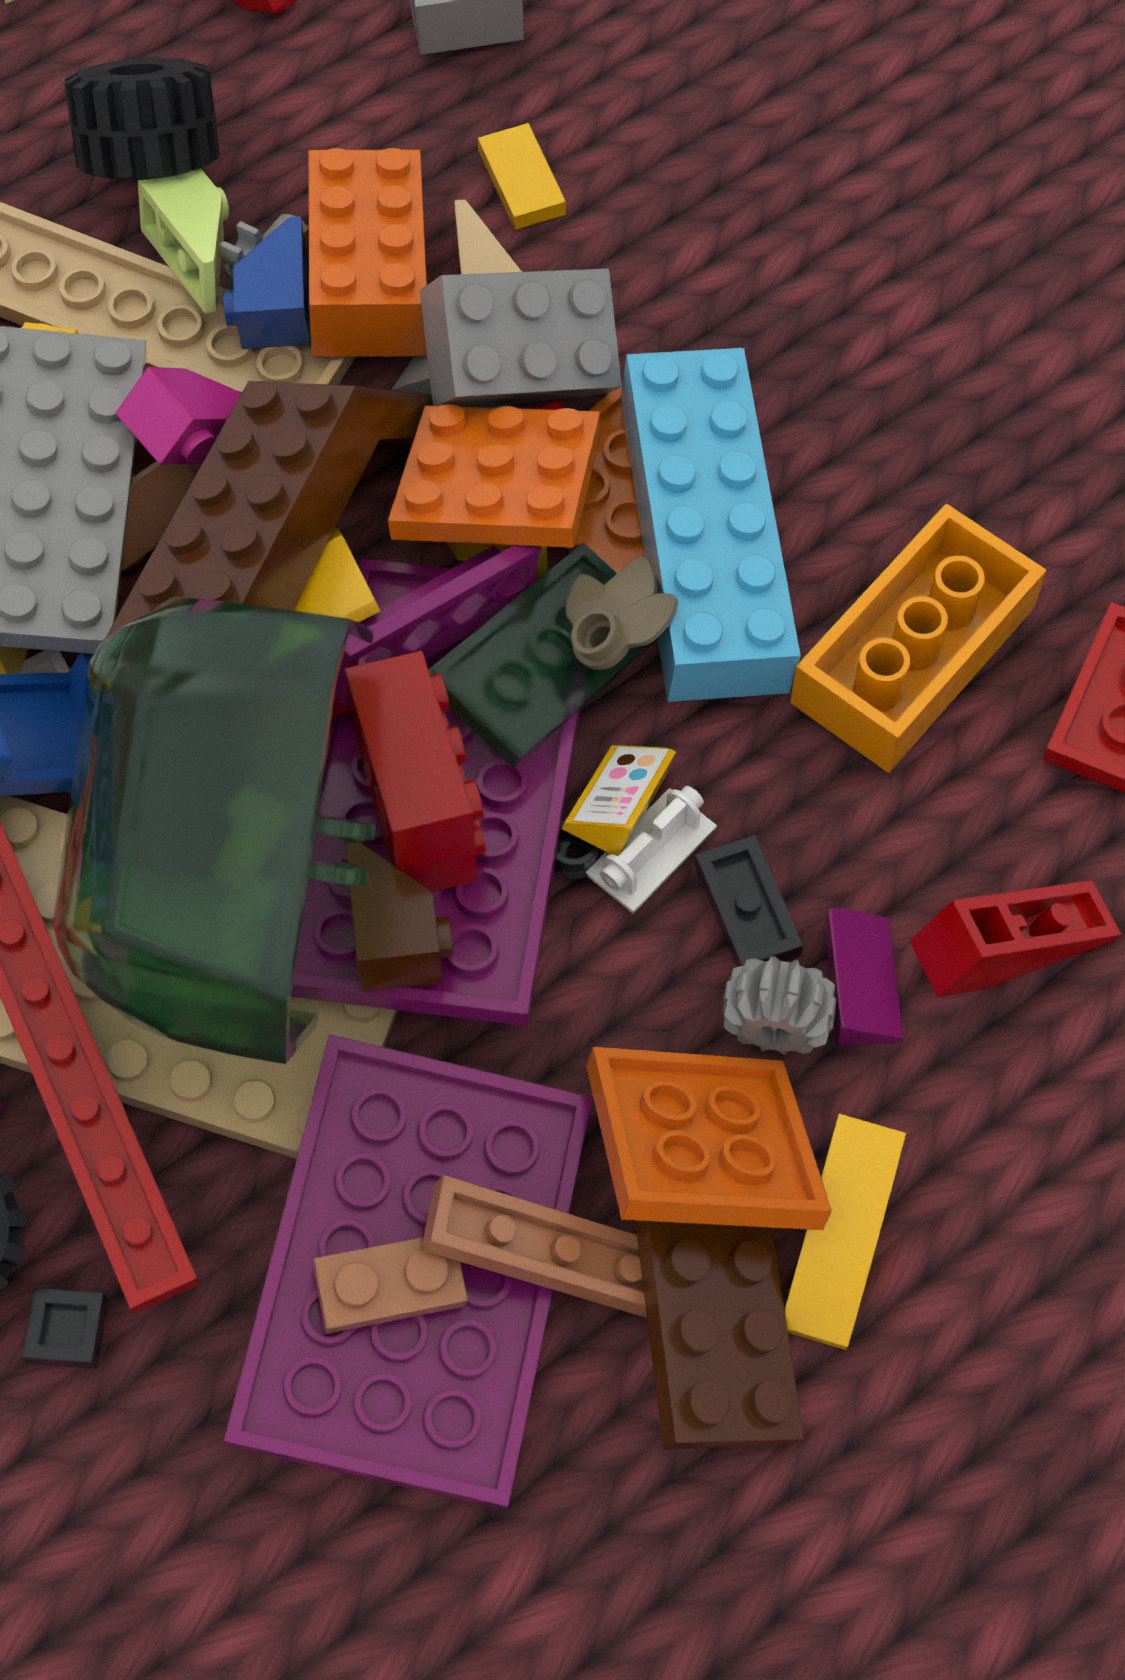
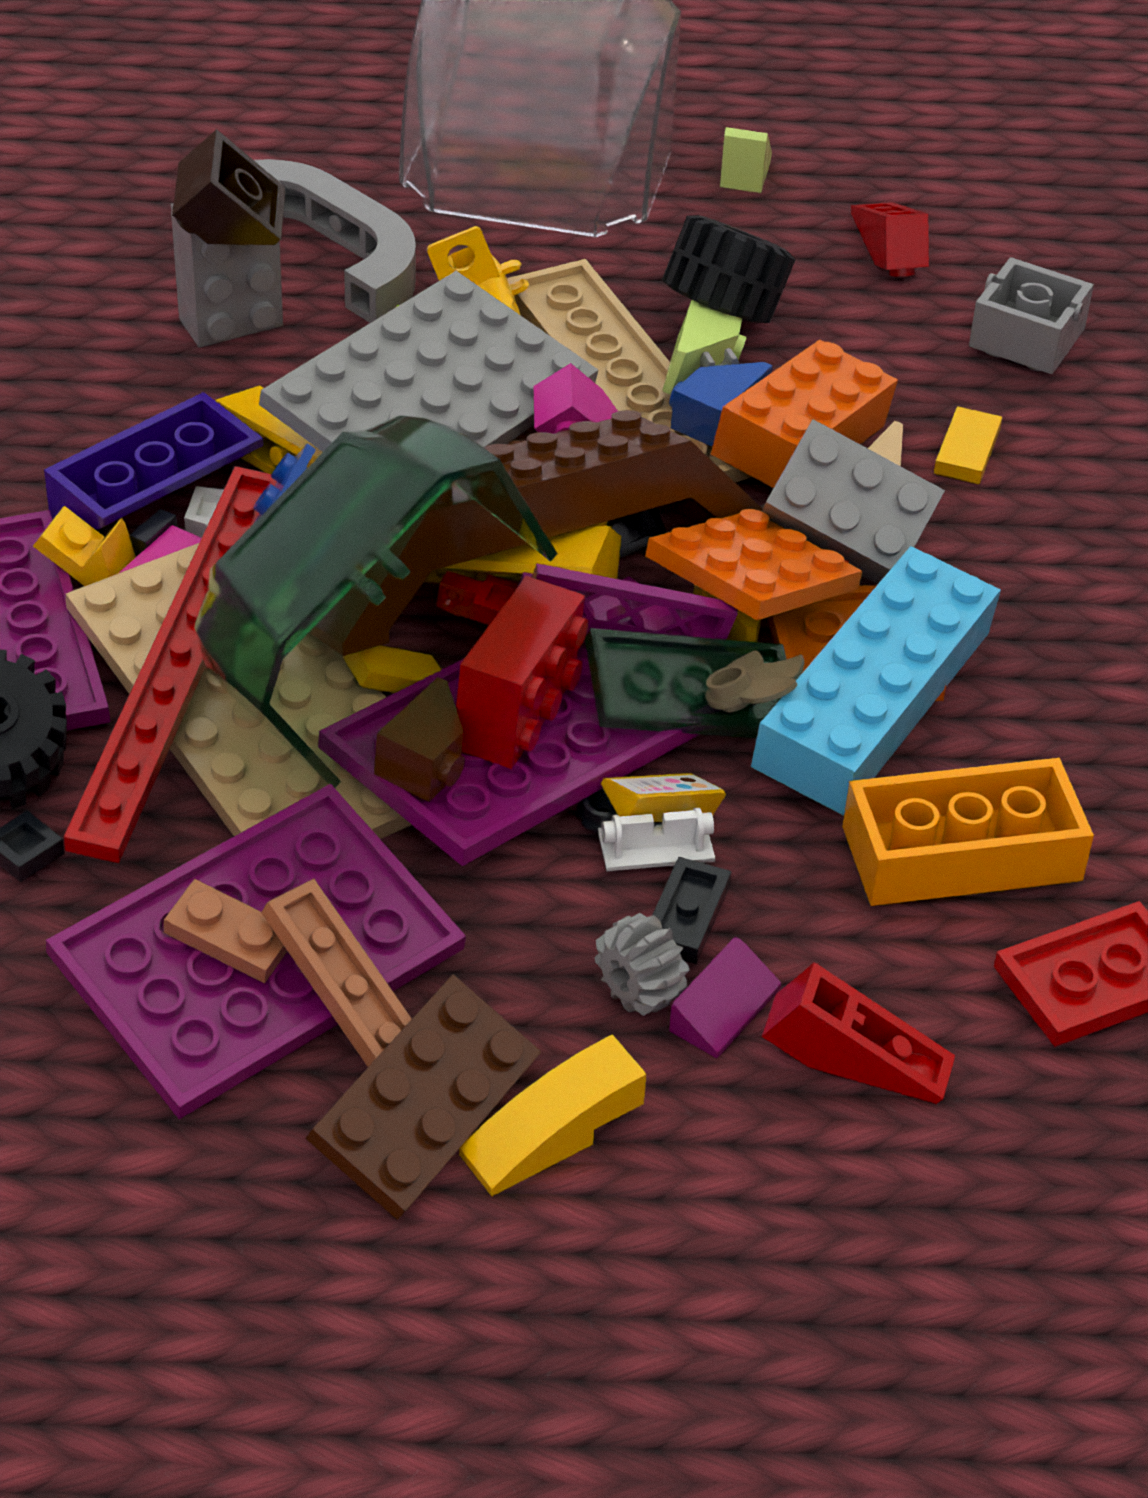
camera: 35 degrees right, 20 degrees down
(705, 1140) = (507, 988): orange plate -> none

